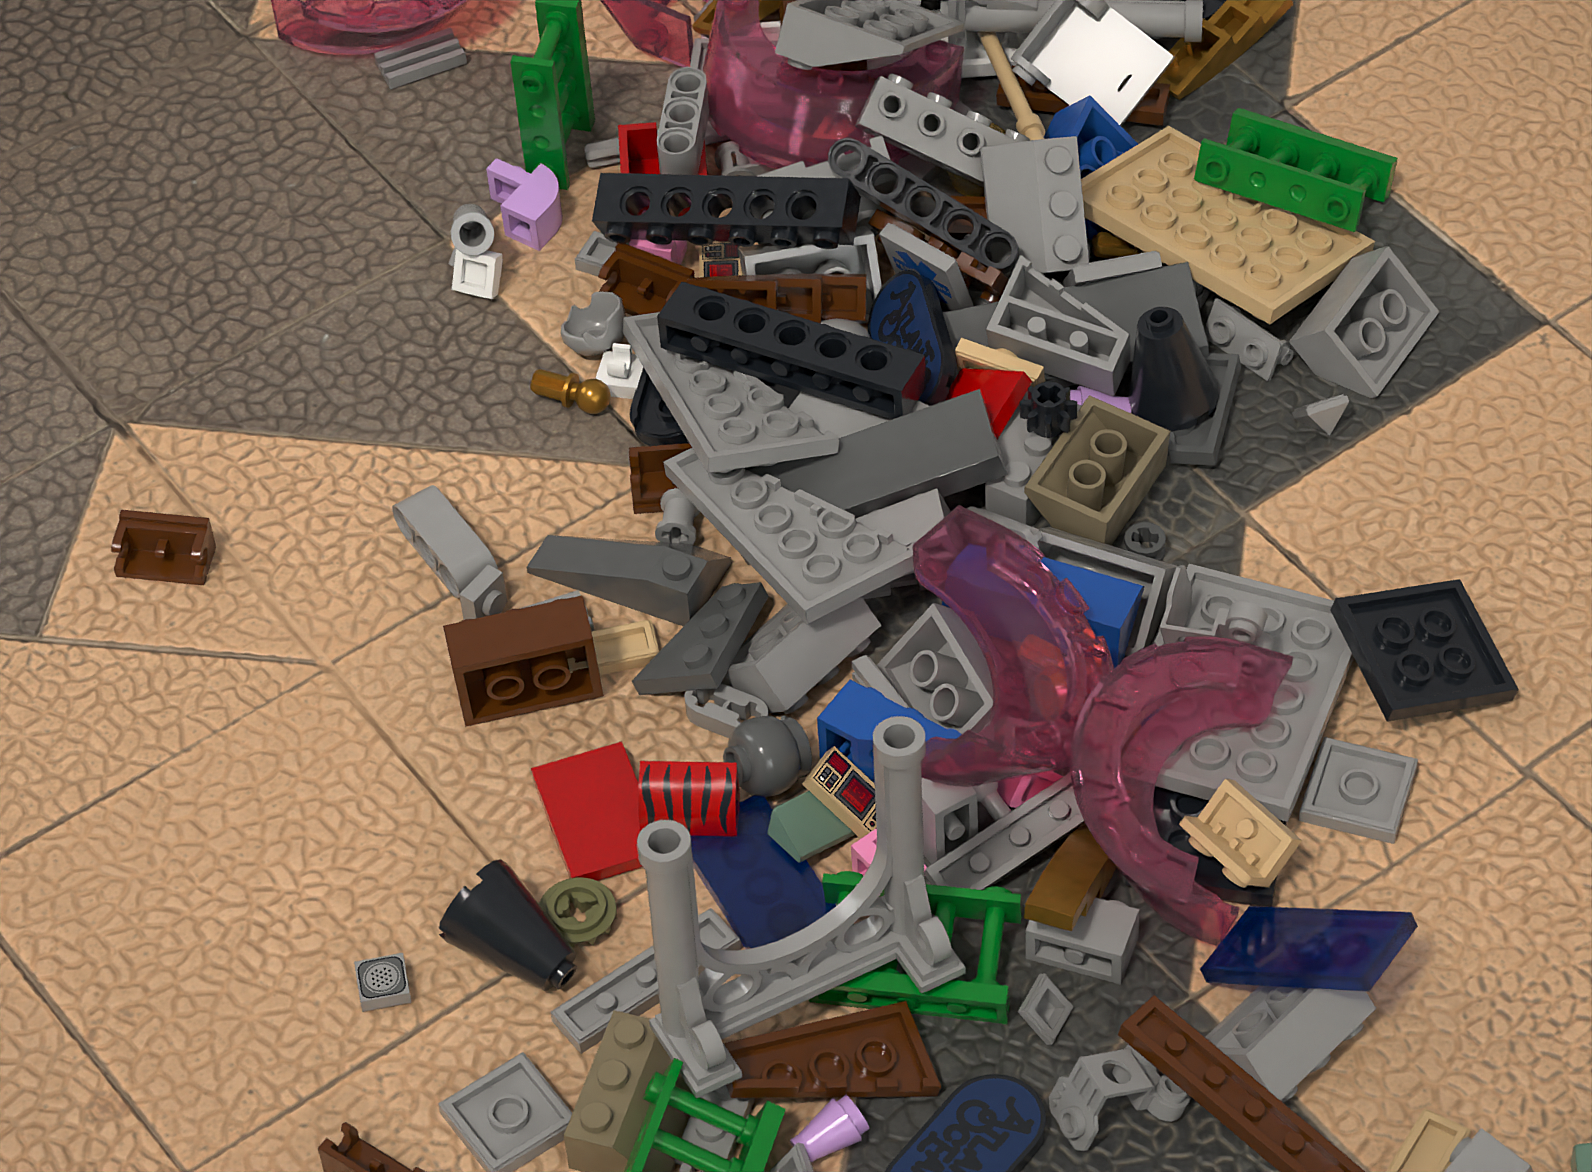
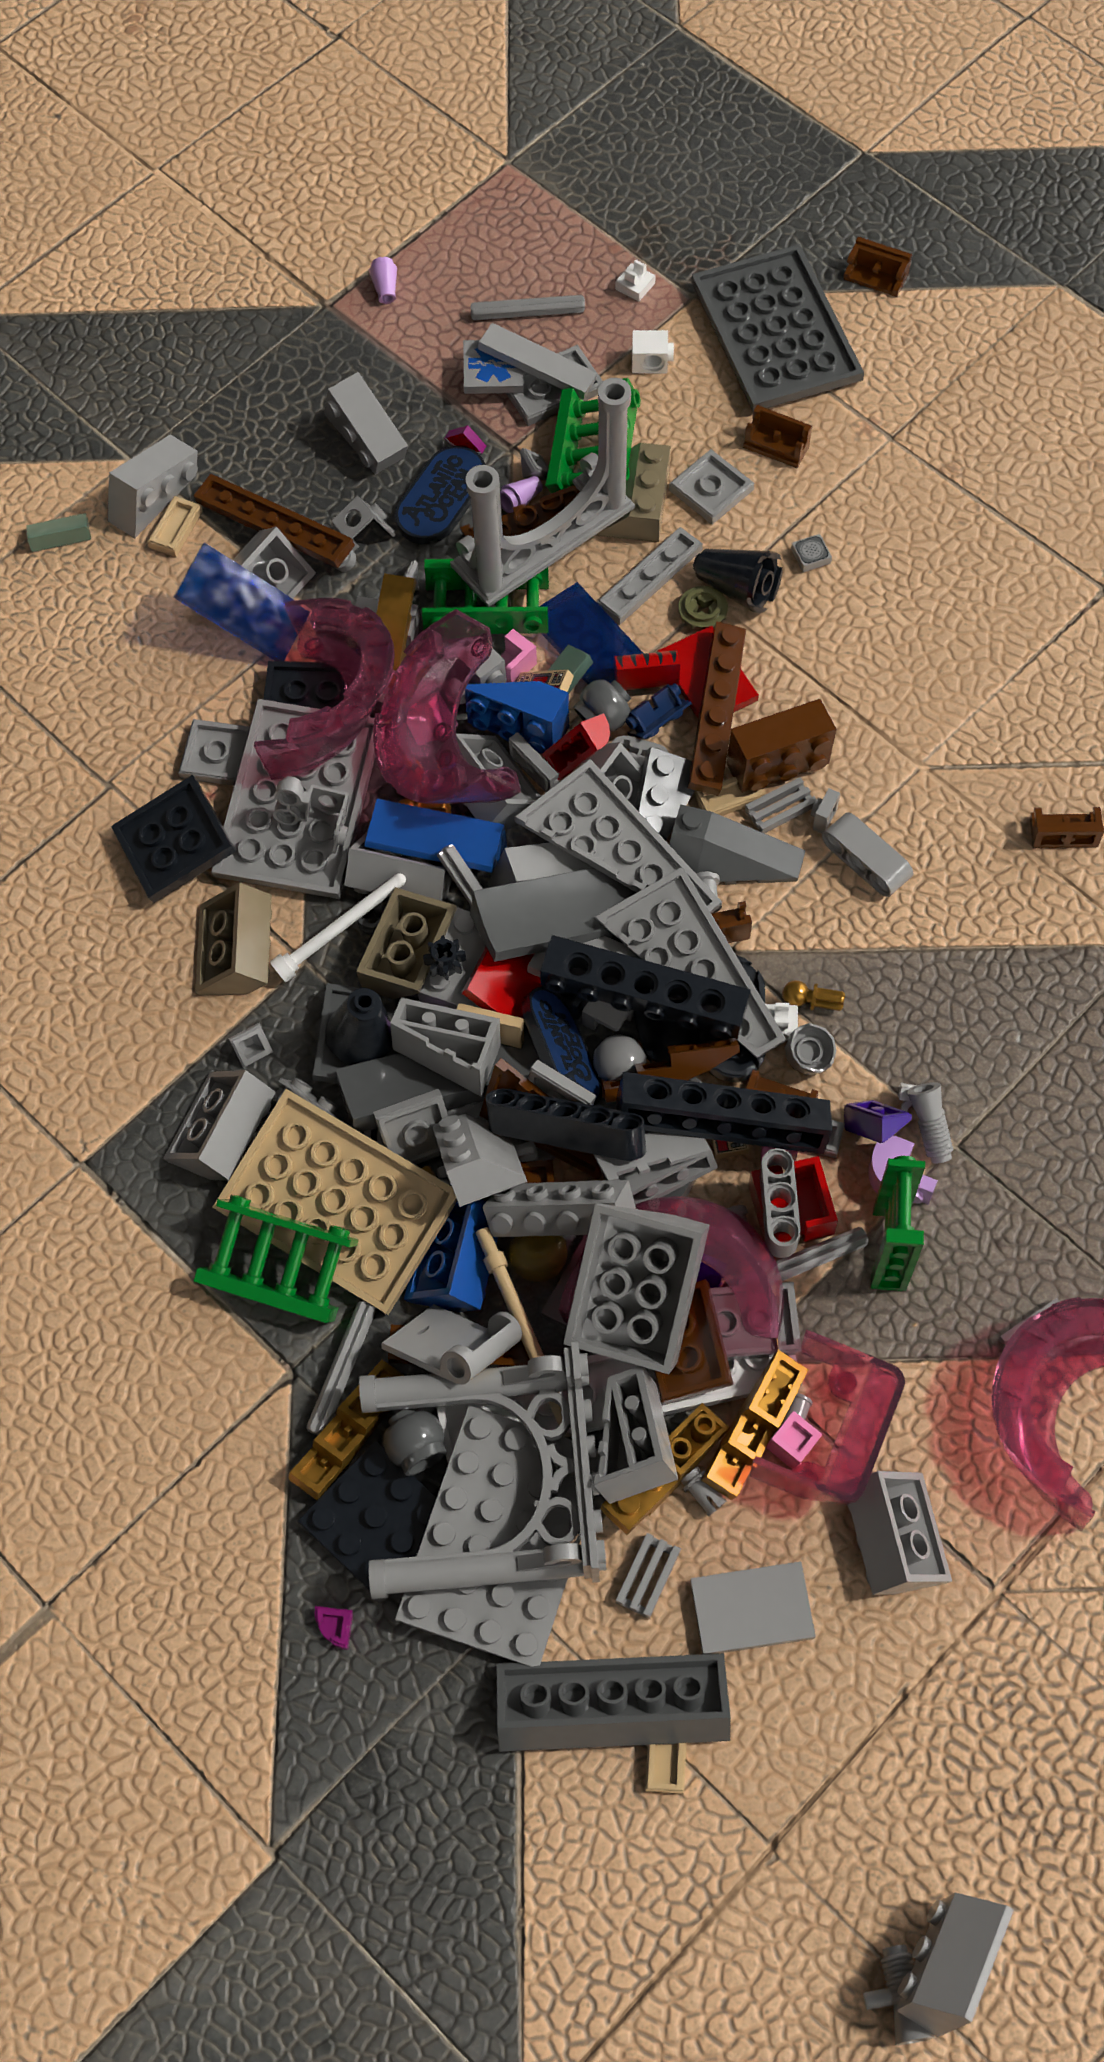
camera: 170 degrees right, 15 degrees up
(536, 238) = (874, 1120): none -> slope
(596, 743) = (717, 709): none -> reddish brown plate
(697, 742) = (646, 721): none -> dark blue hinge
(802, 684) = (578, 745): none -> red brick
(1228, 89) = (341, 1367): none -> light grey axle
(1241, 836) = (290, 674): tan bracket -> none
(1267, 491) = (288, 964): none -> white piece
(1339, 522) = (234, 942): none -> dark tan slope

